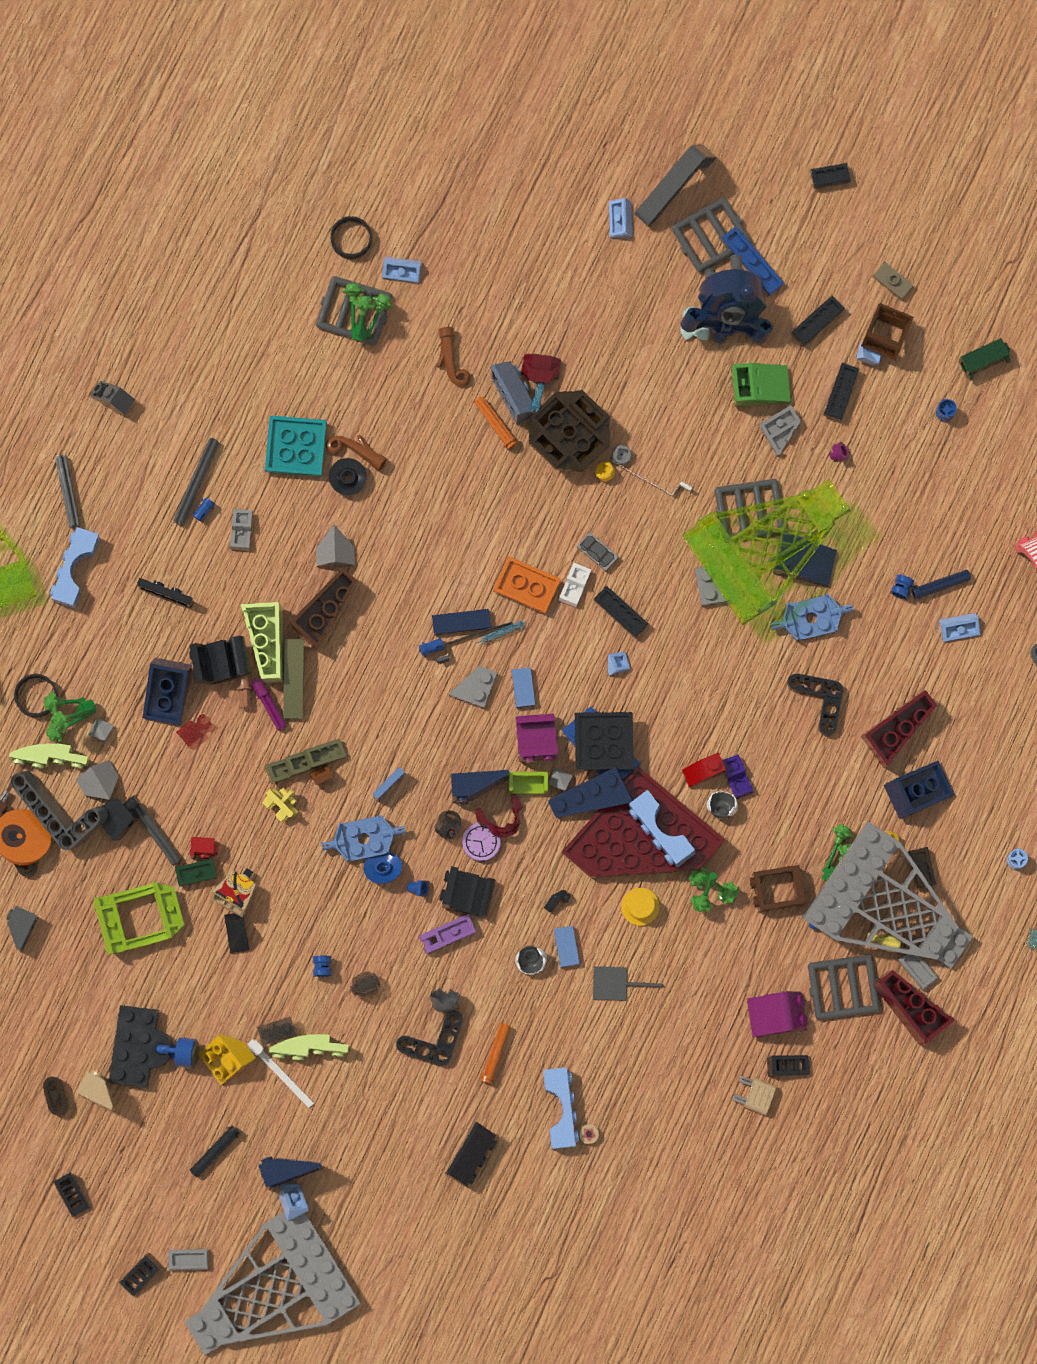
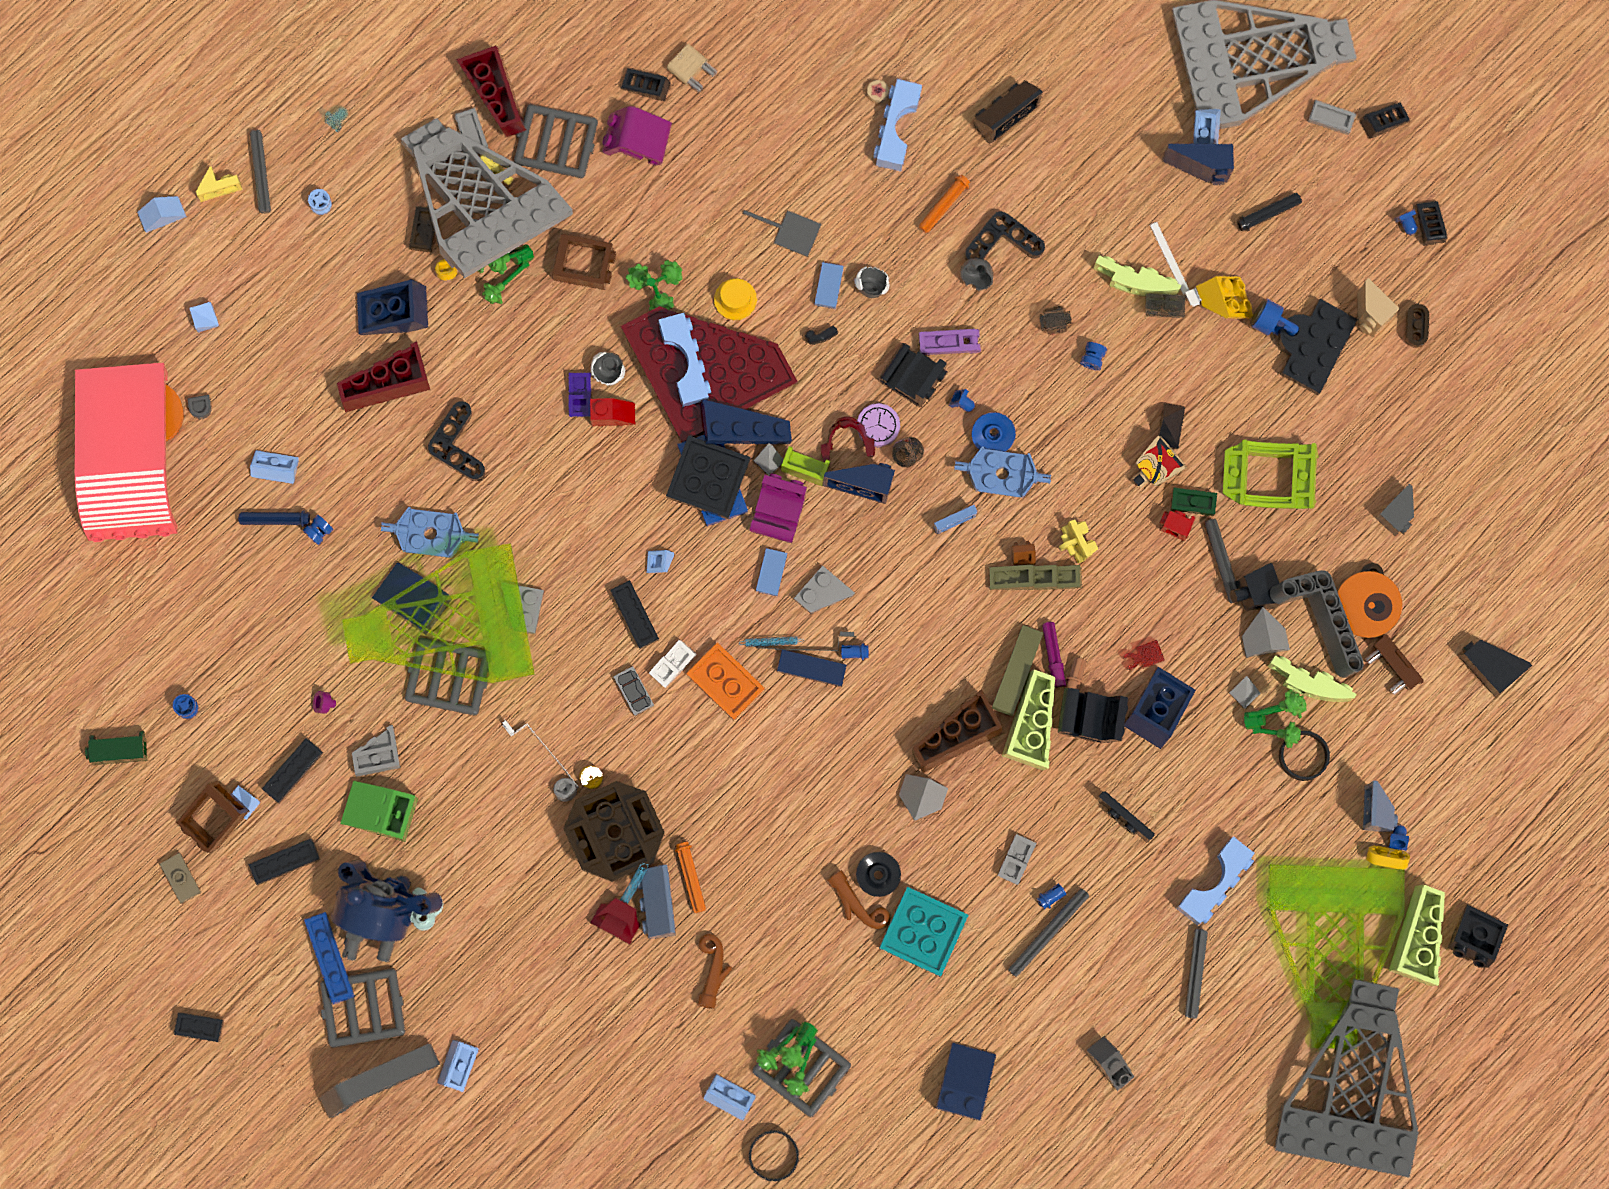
camera: 160 degrees left, 0 degrees up
(92, 1186) = (1408, 222): none -> blue piece
(221, 343) = (966, 1082): none -> dark blue slope

